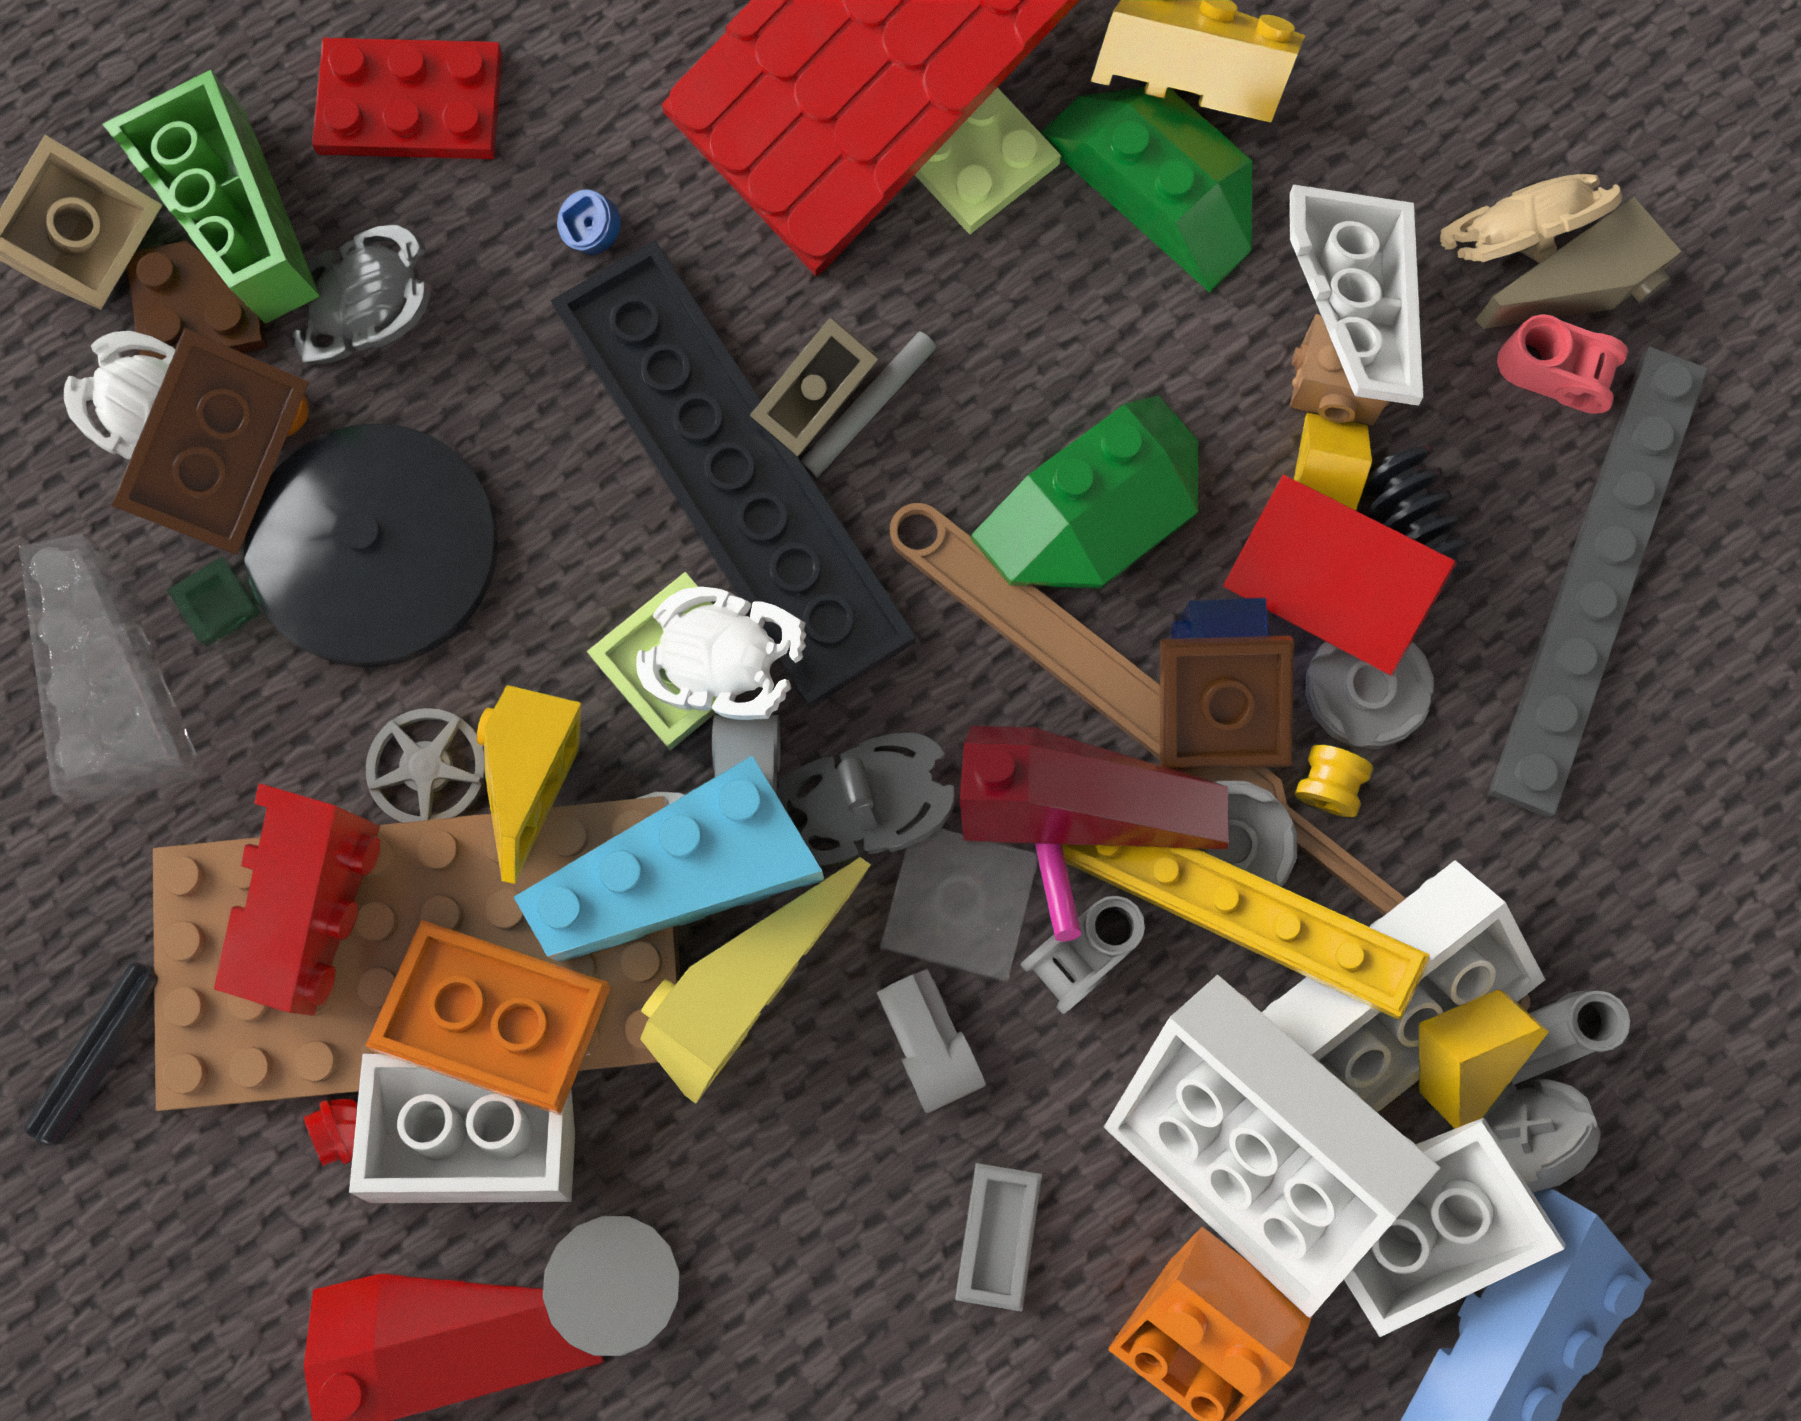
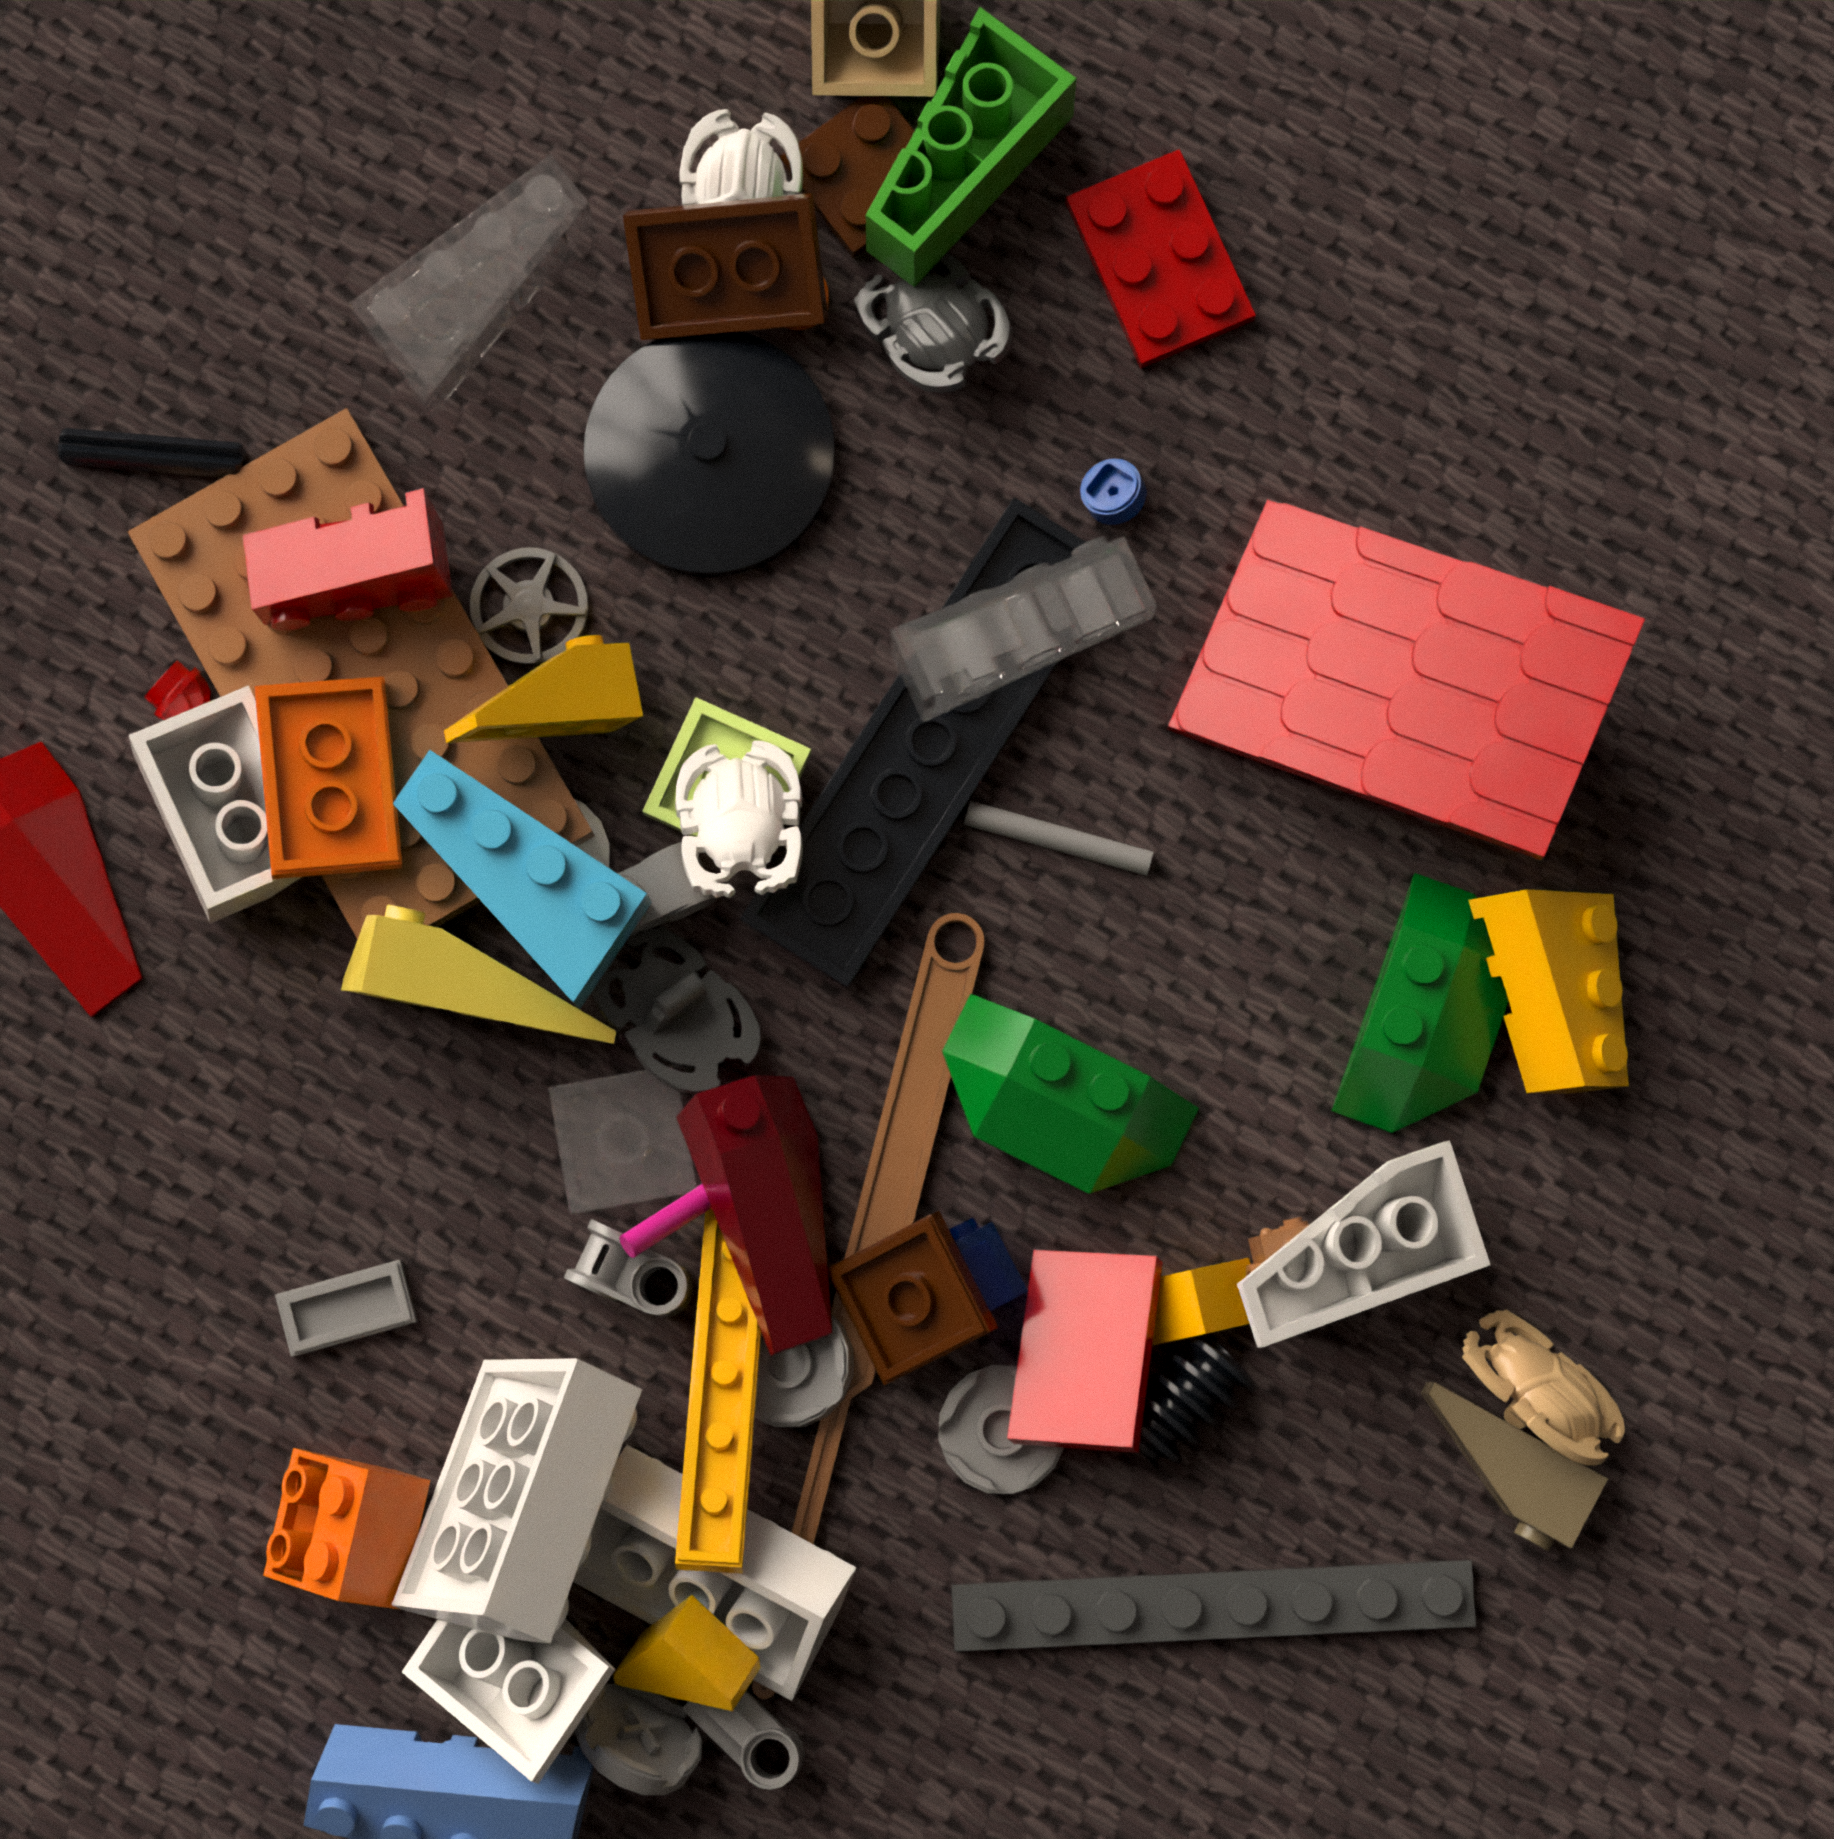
camera: 65 degrees right, 5 degrees up
(214, 601) = (589, 342): clear green plate -> none
(611, 1285) = (155, 992): light grey tile -> none
(668, 336) = (1020, 626): none -> clear wedge
(815, 385) = (1045, 783): dark tan slope -> none
(934, 1053) = (480, 1175): light grey piece -> none
(988, 162) = (1357, 842): yellowish green plate -> none
(1334, 780) = (890, 1431): yellow wheel -> none
(1574, 363) = (1412, 1488): coral piece -> none

